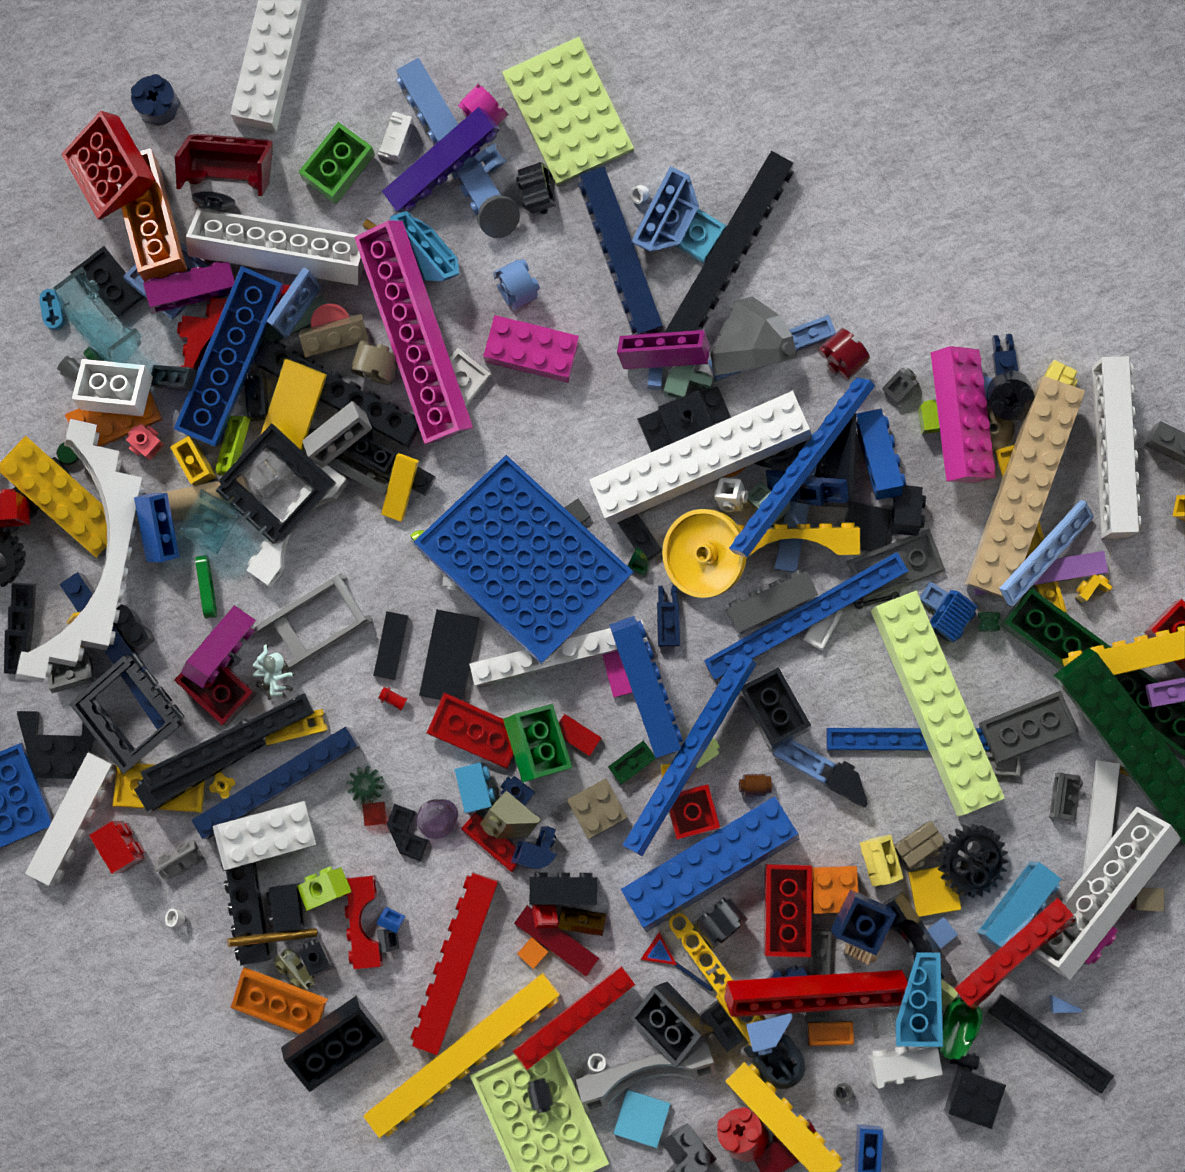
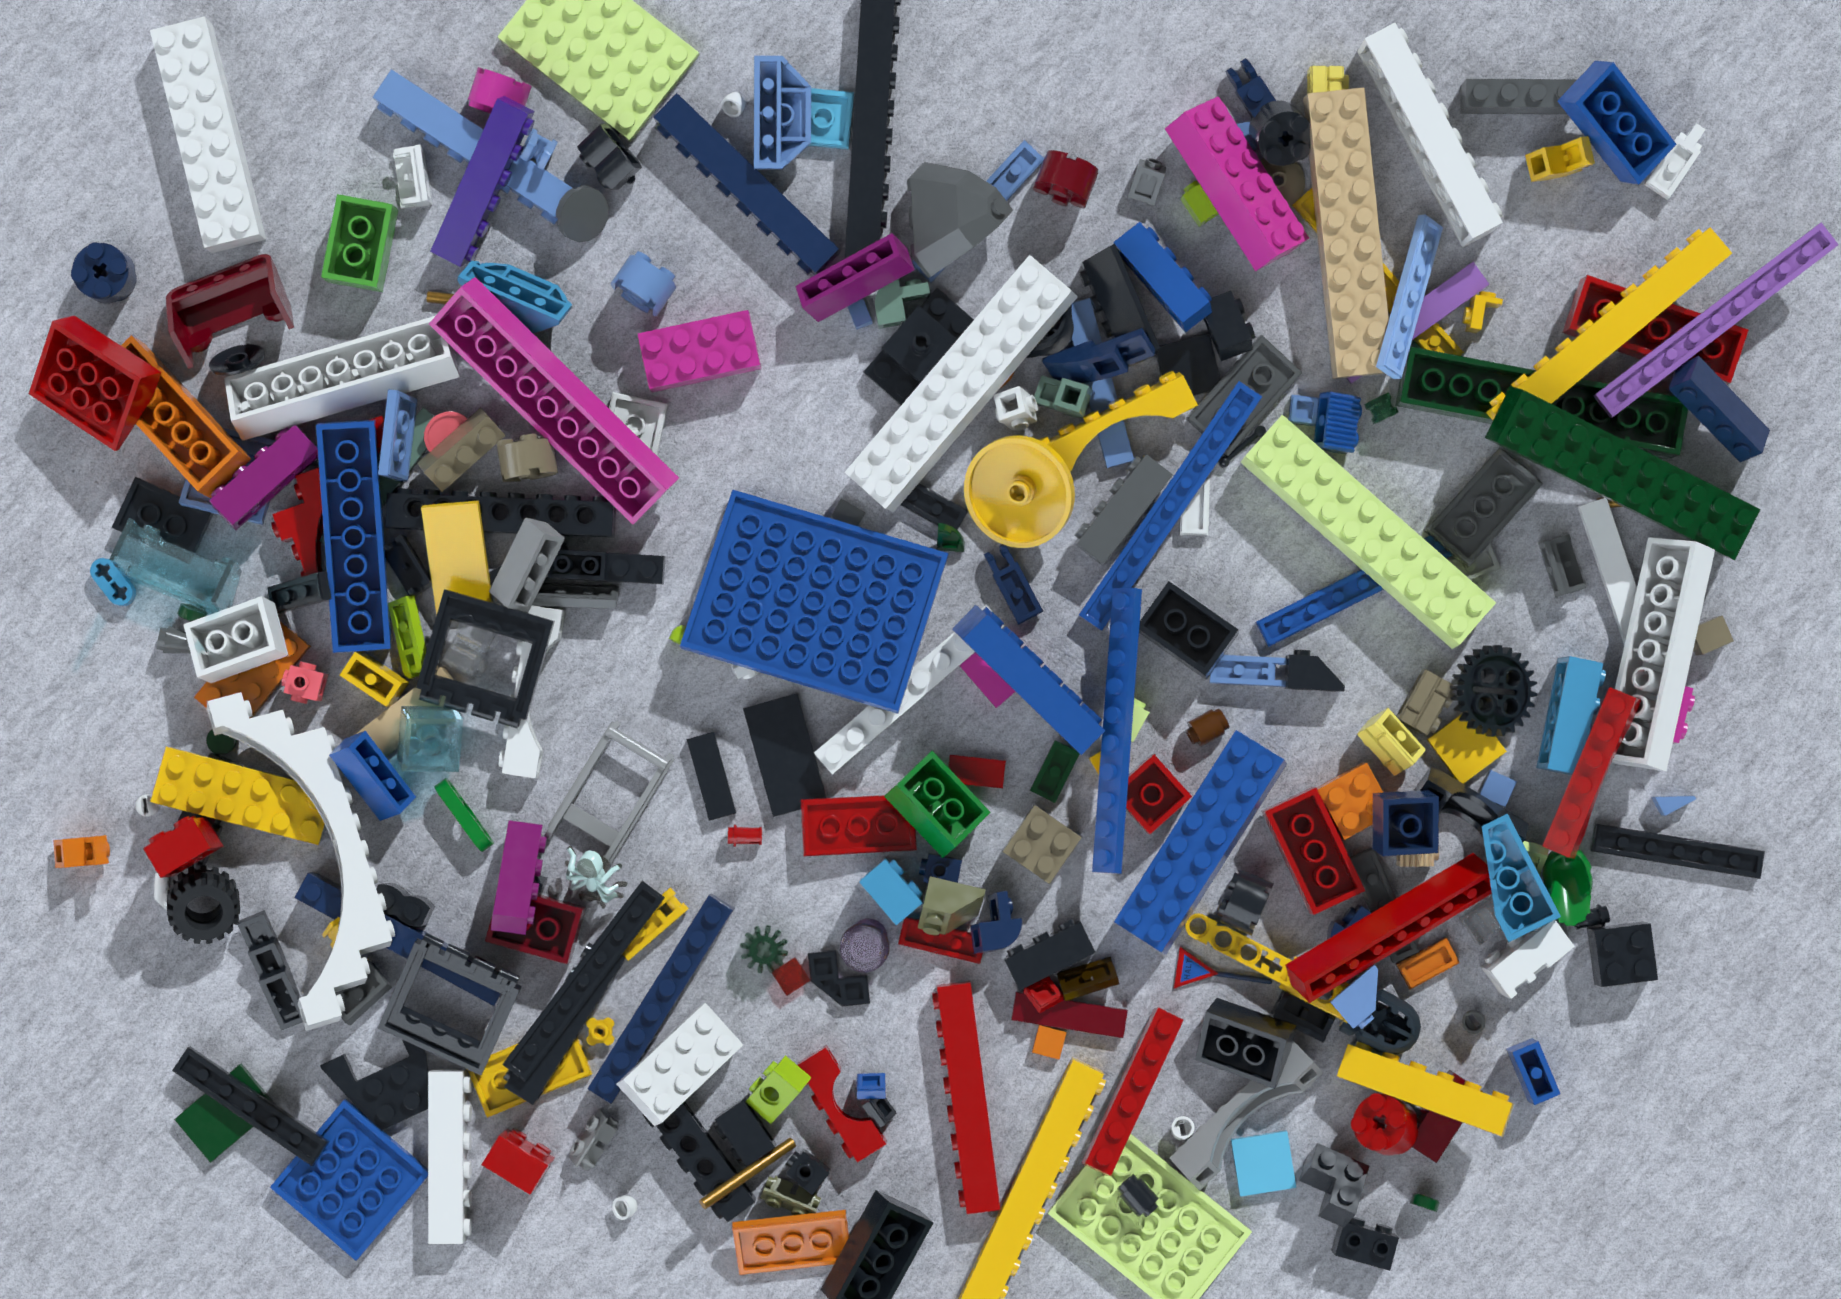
camera: 30 degrees left, 5 degrees up
(400, 487) = (630, 589): yellow tile -> none
(801, 467) = (1083, 337): blue plate -> none

